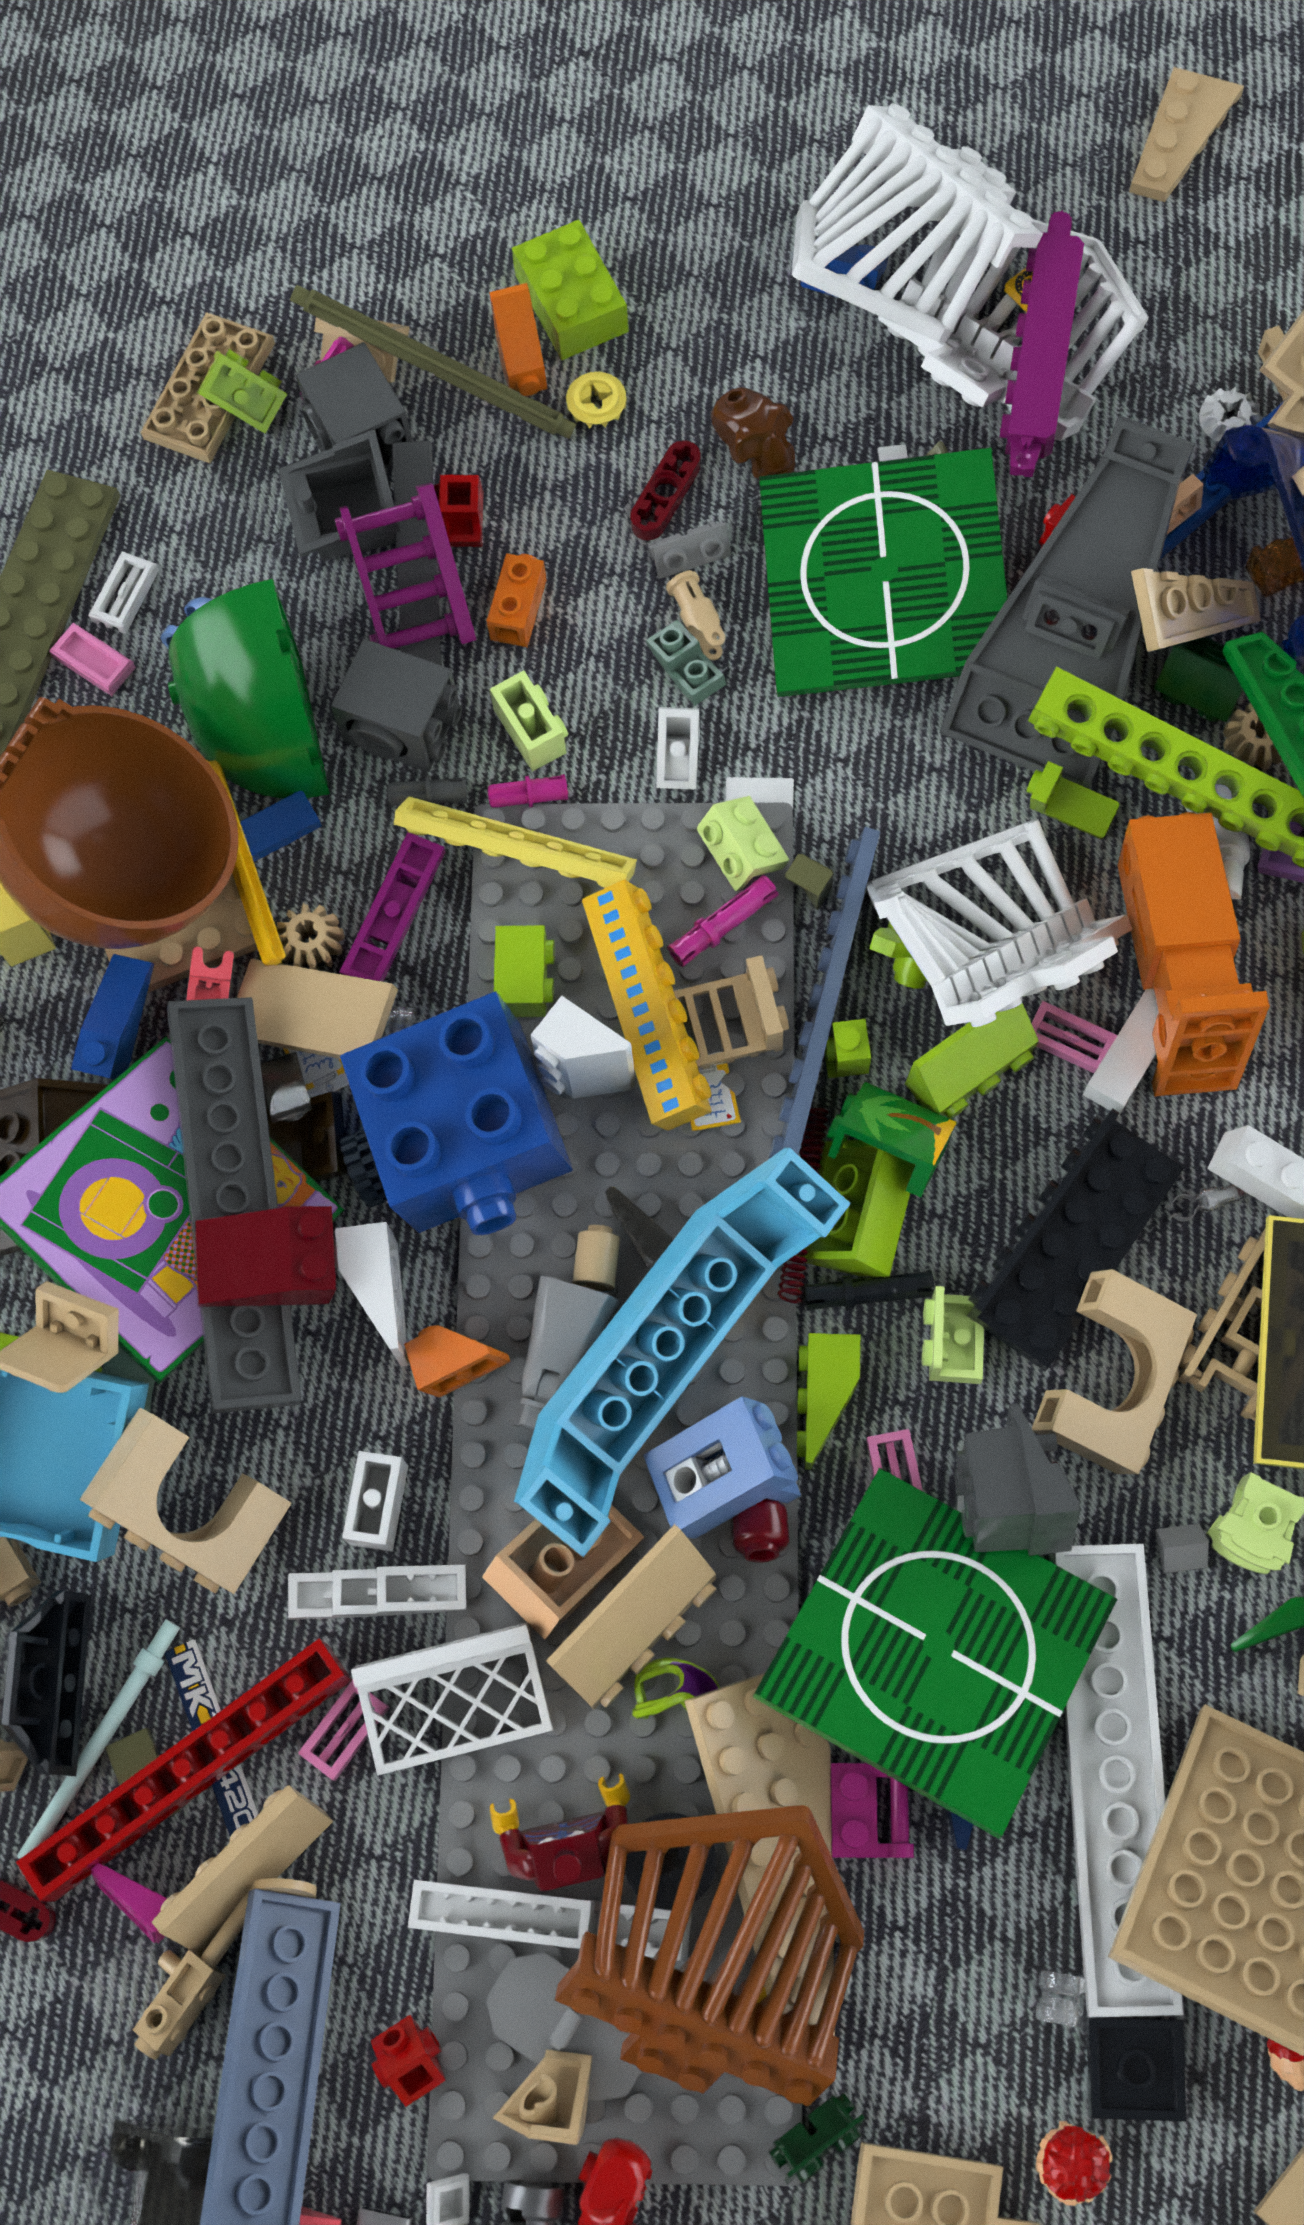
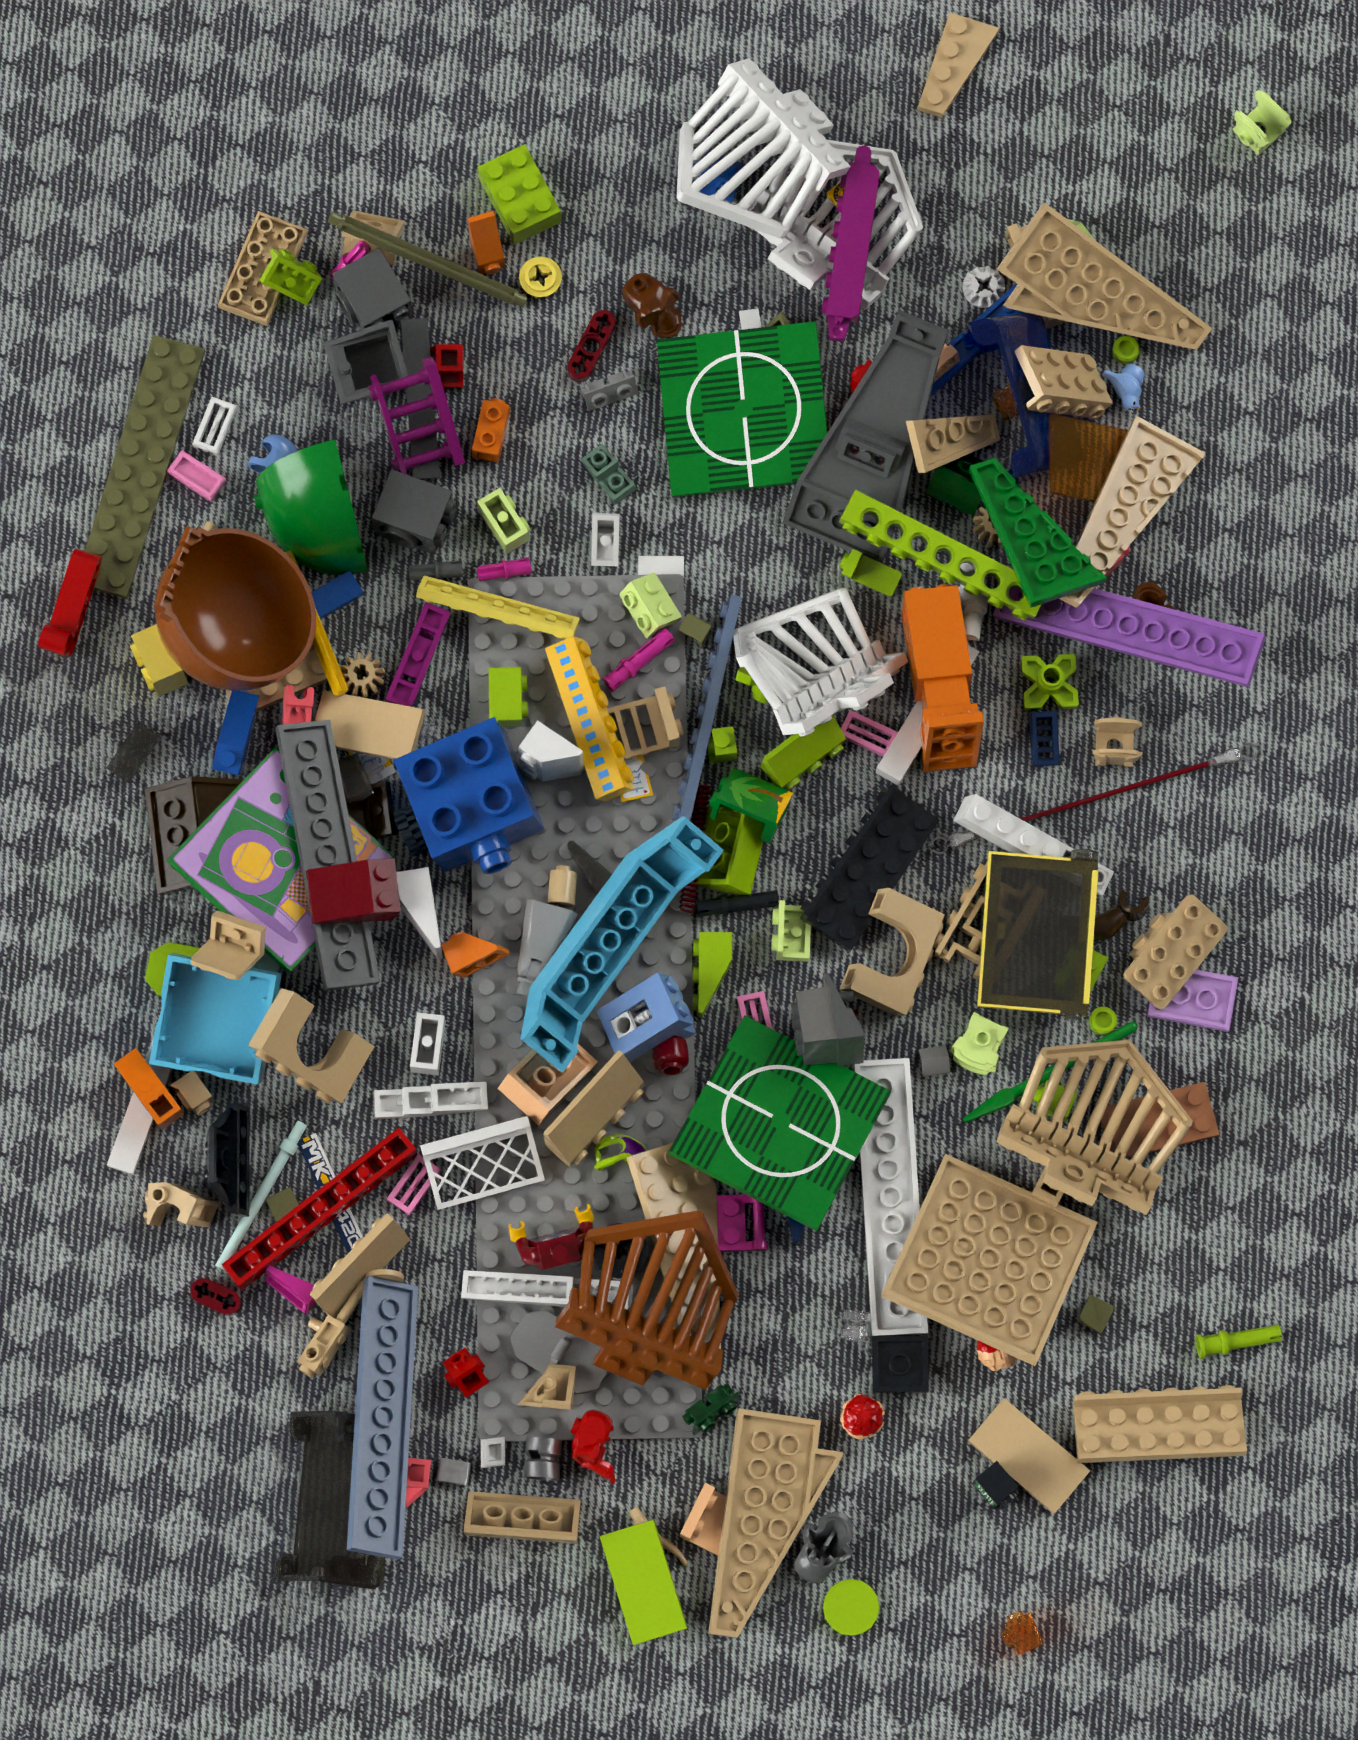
camera: 10 degrees left, 5 degrees up
(697, 612) = (616, 439): tan piece -> none

